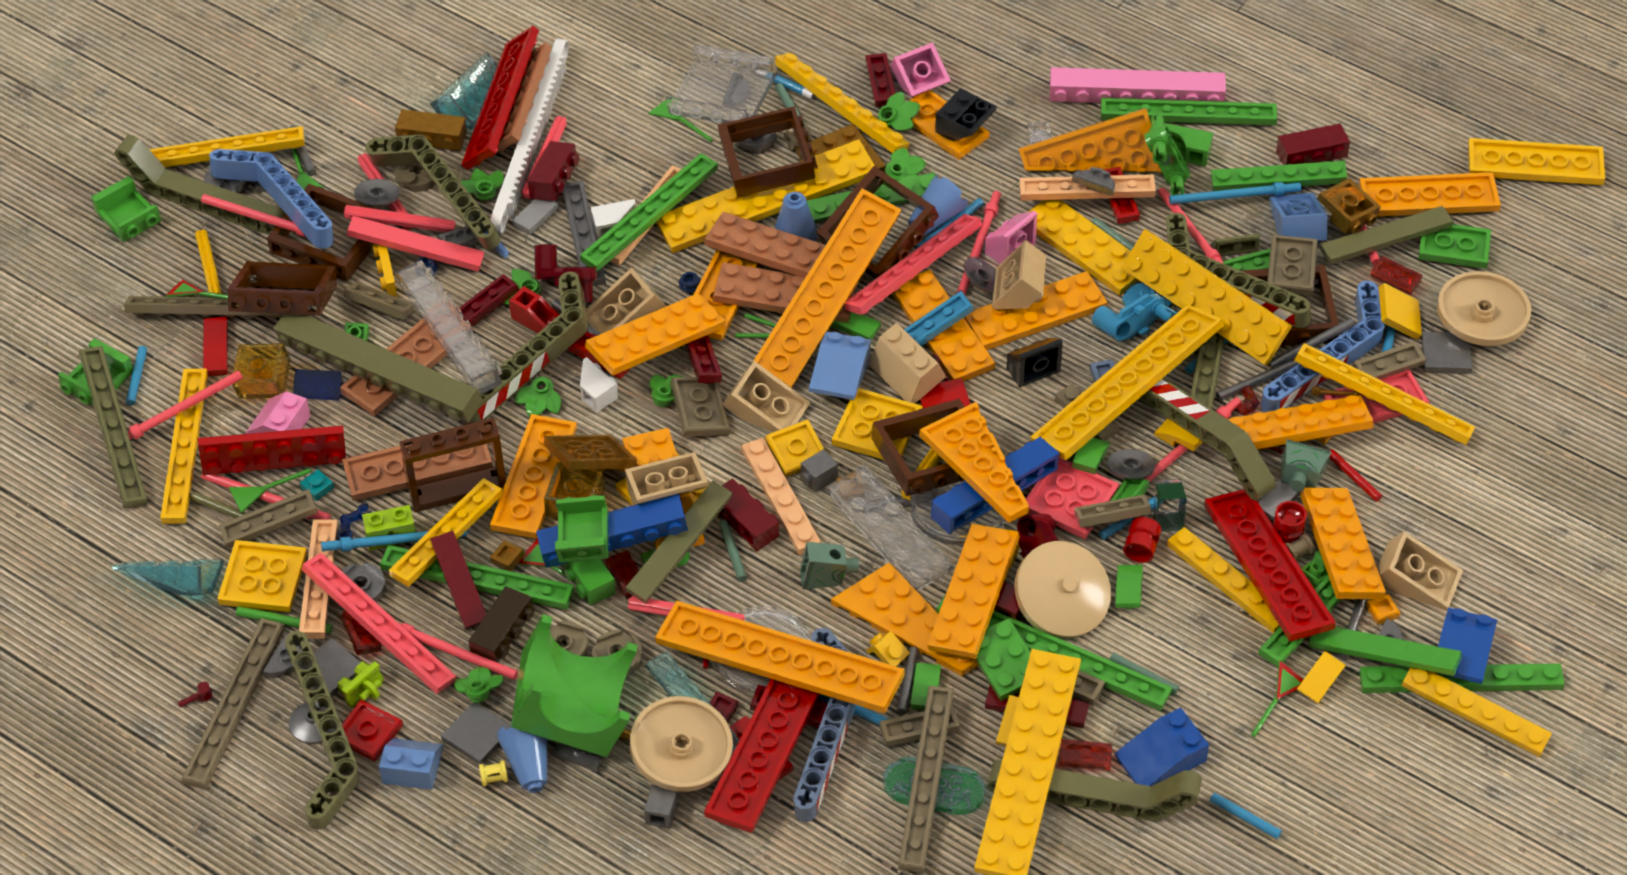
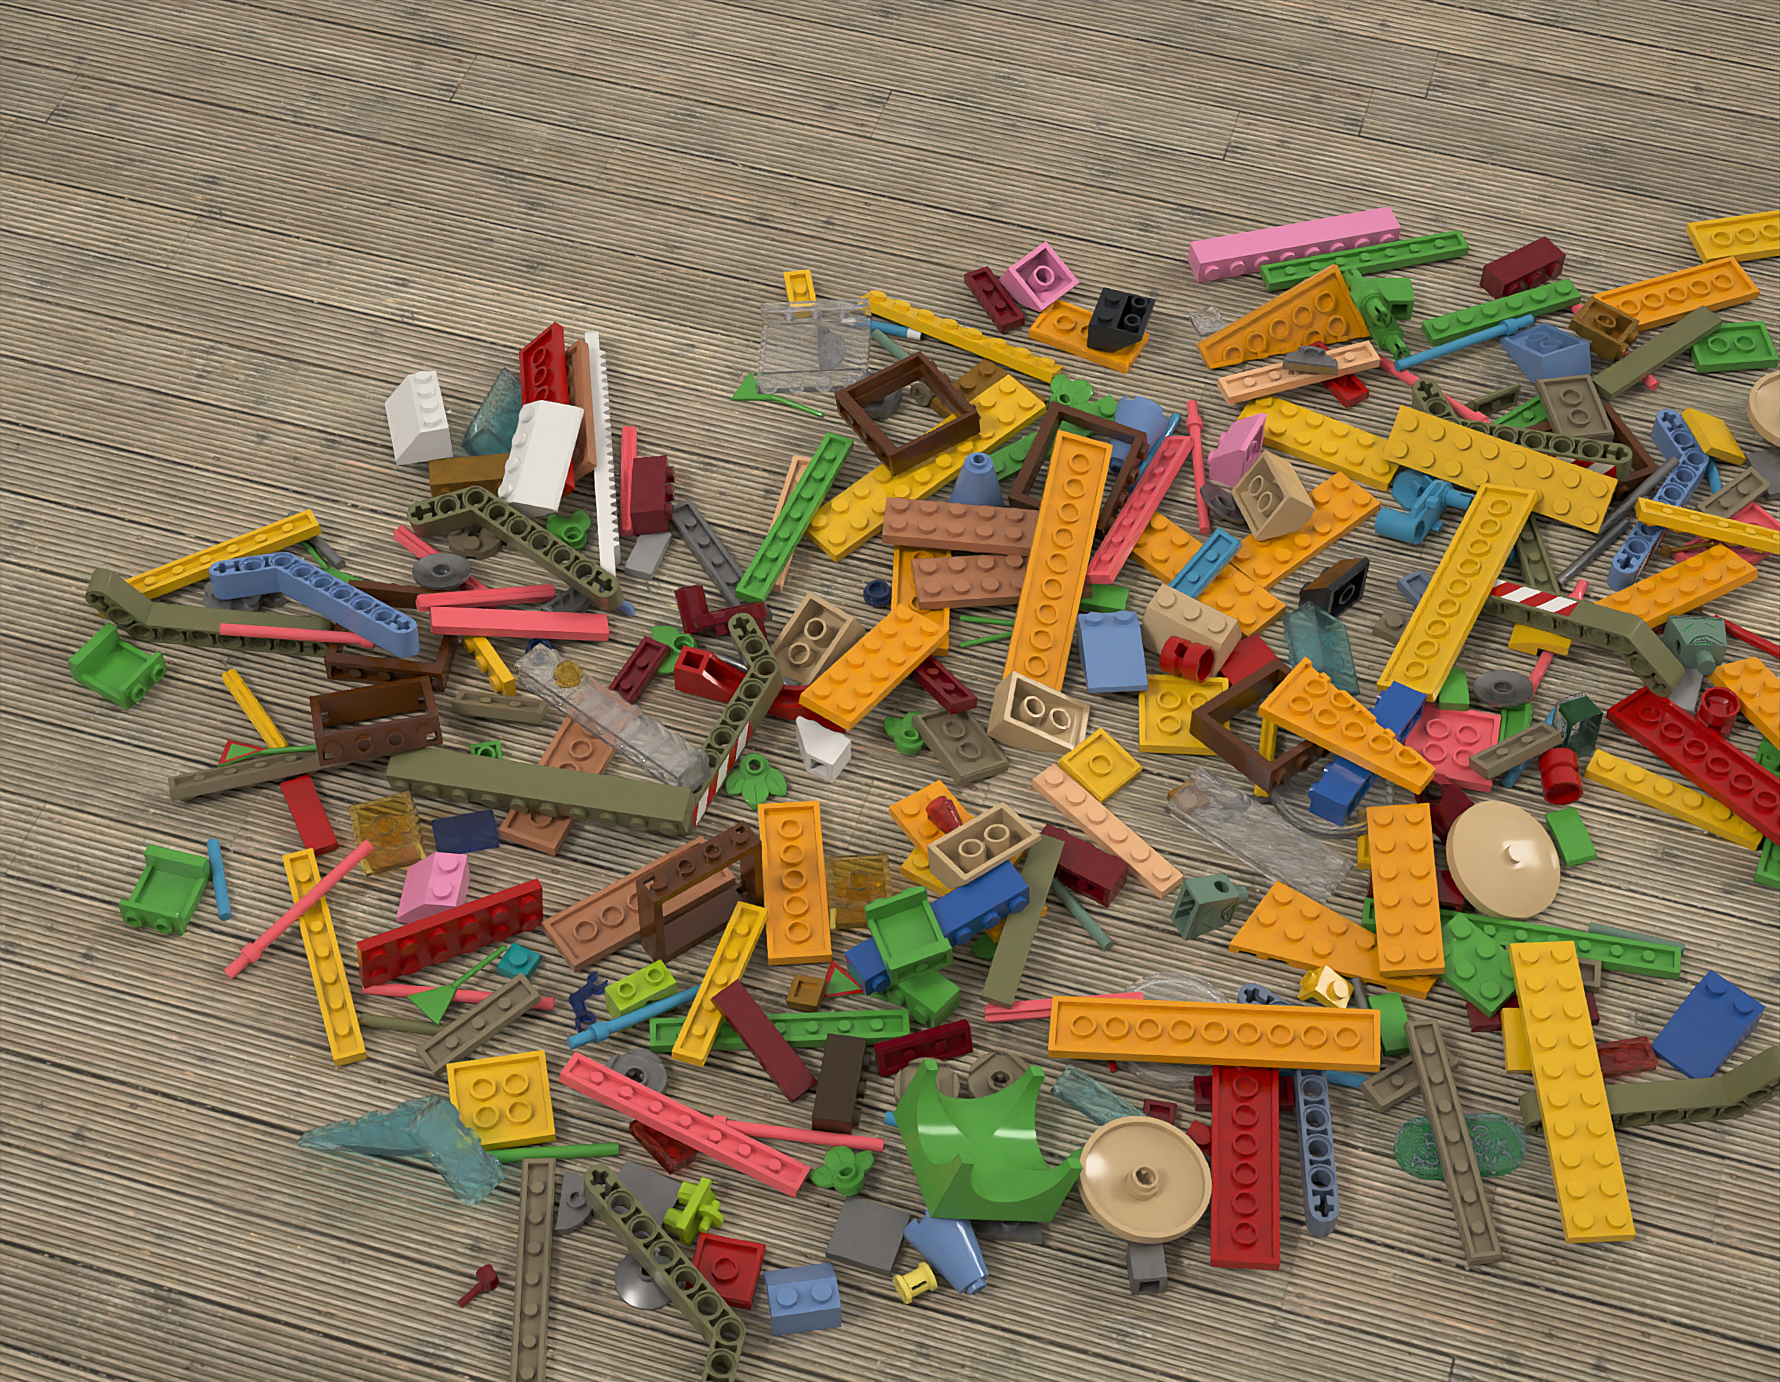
camera: 20 degrees left, 0 degrees up
(113, 427) = (221, 955): olive tile -> none
(212, 599) = (455, 1151): none -> clear light blue brick
(315, 599) = (585, 1112): light nougat plate -> none
(408, 78) = (418, 420): none -> white slope
(427, 287) = (567, 674): none -> clear yellow plate
(476, 125) = (540, 457): none -> white slope
(585, 614) = (937, 1042): none -> dark red plate
(590, 452) = (860, 834): pearl gold plate -> none
(608, 215) = (746, 536): white slope -> none
(622, 569) = (967, 977): clear red plate -> none
(653, 450) = (943, 814): none -> clear red cone
(735, 38) = (799, 286): none -> yellow plate
(818, 471) = (1141, 787): flat silver brick -> none
(892, 384) = (1186, 659): none -> red wheel
(901, 112) = (1037, 330): bright green plate -> none
(1005, 402) = (1324, 642): none -> clear light blue slope
(1112, 233) = (1352, 422): sand green bar -> none
(1250, 402) = (1597, 580): clear red arm -> none
(1301, 547) = (1742, 736): dark tan bush -> none
(1396, 275) = (1685, 395): clear red plate -> none

